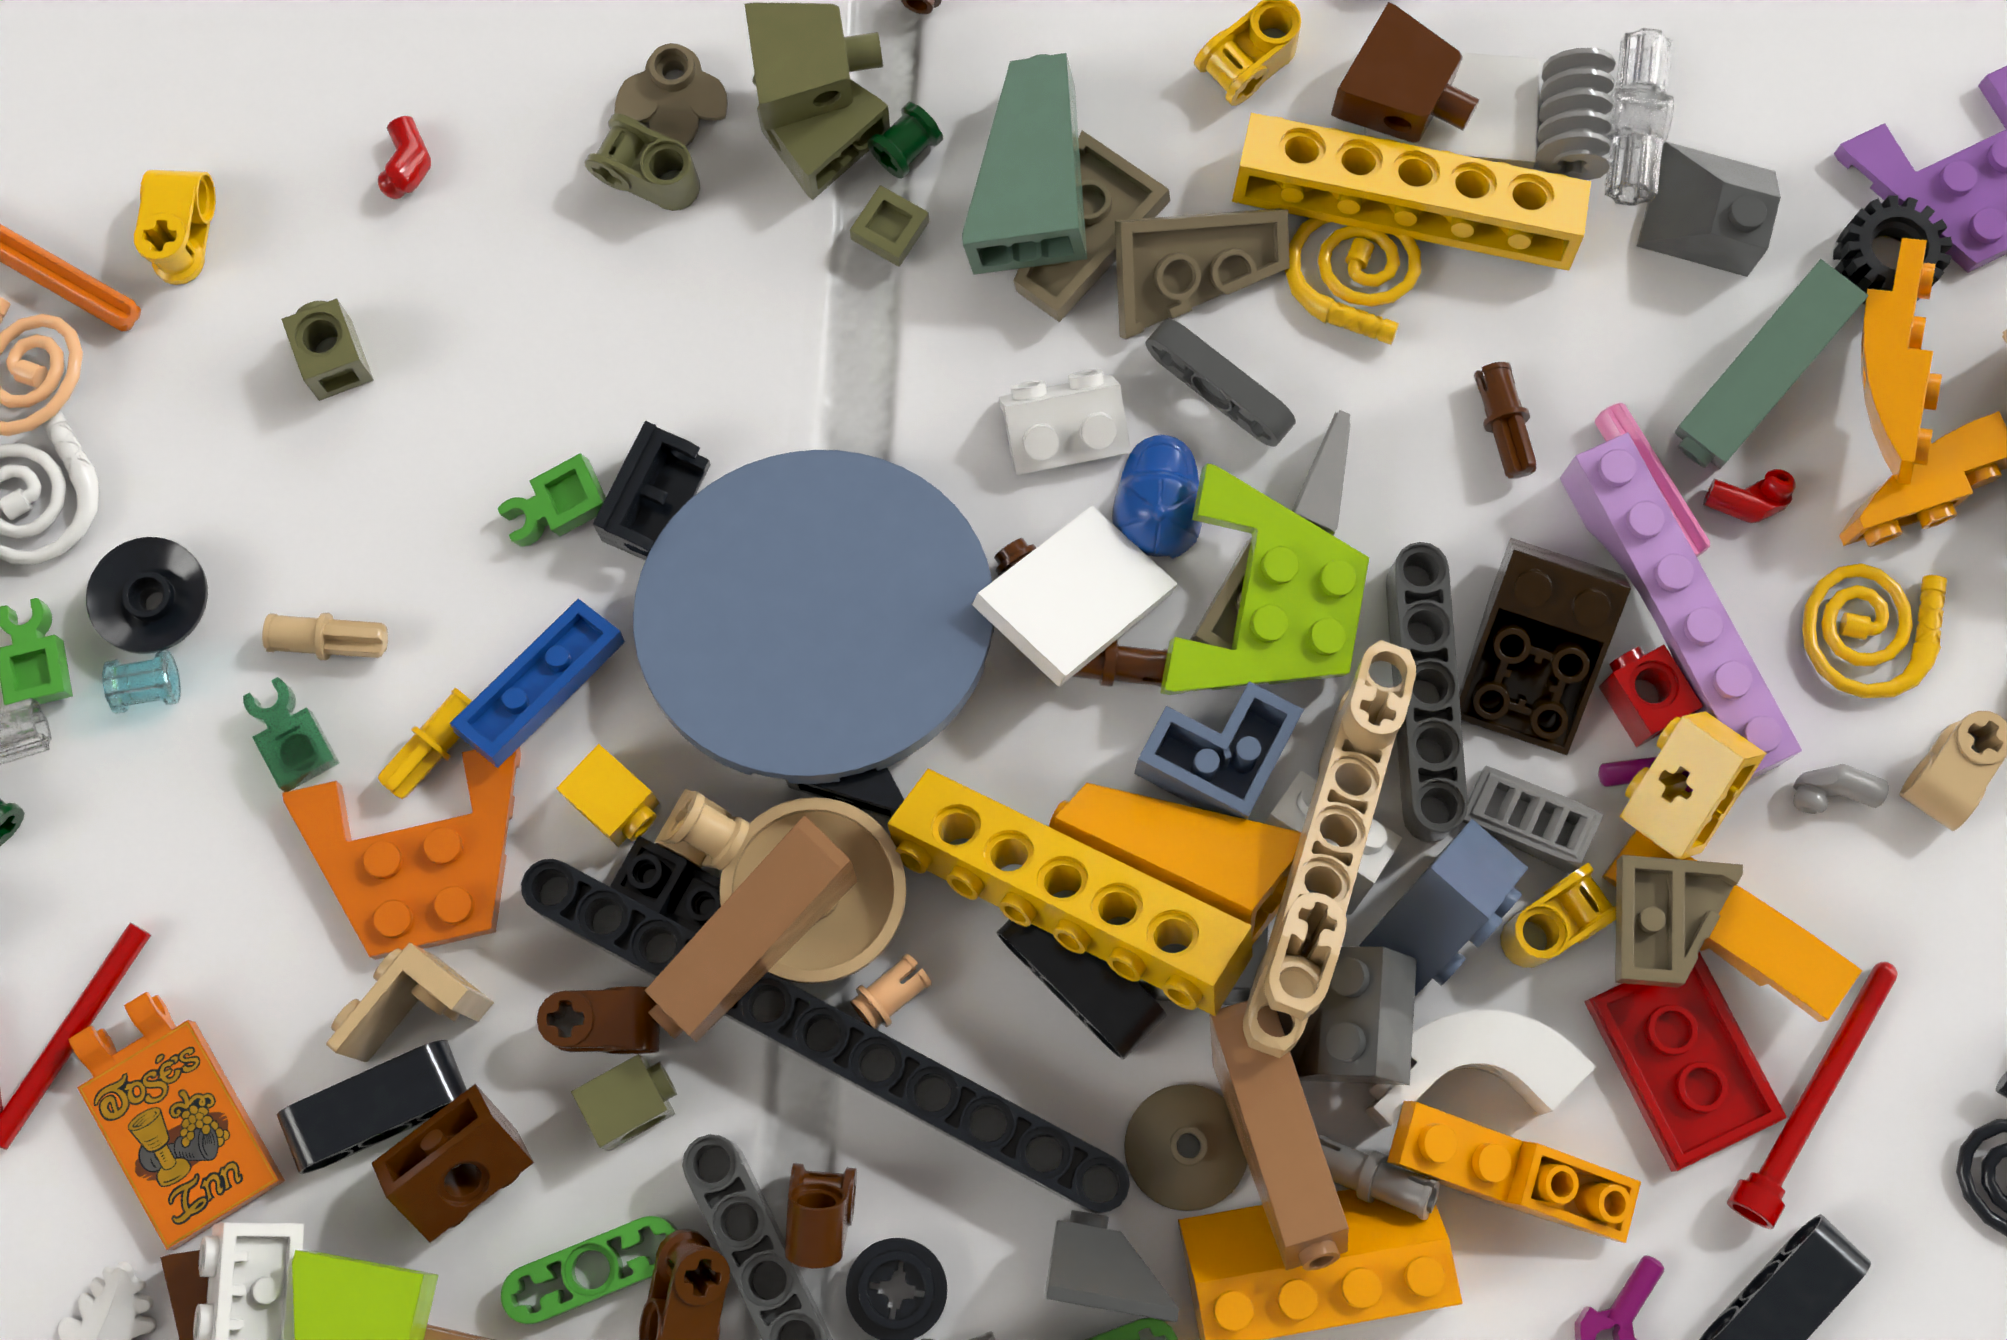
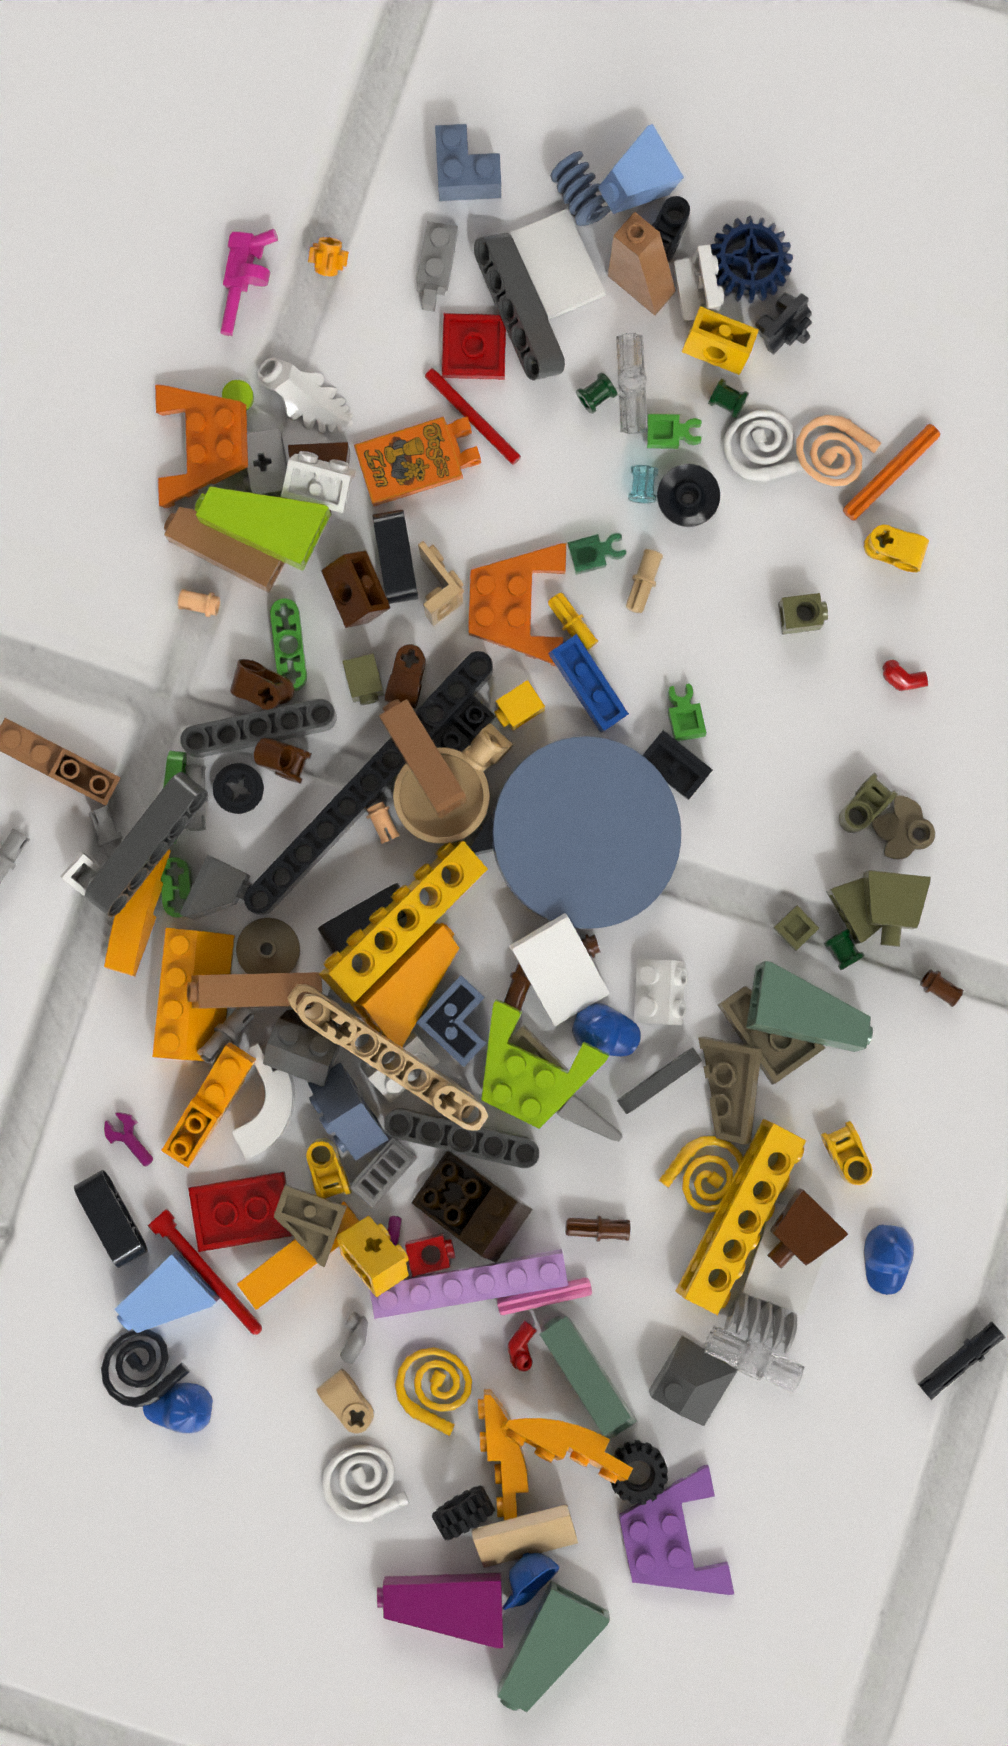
camera: 105 degrees right, 10 degrees up
(1891, 1154) = (166, 1295): none -> light blue slope

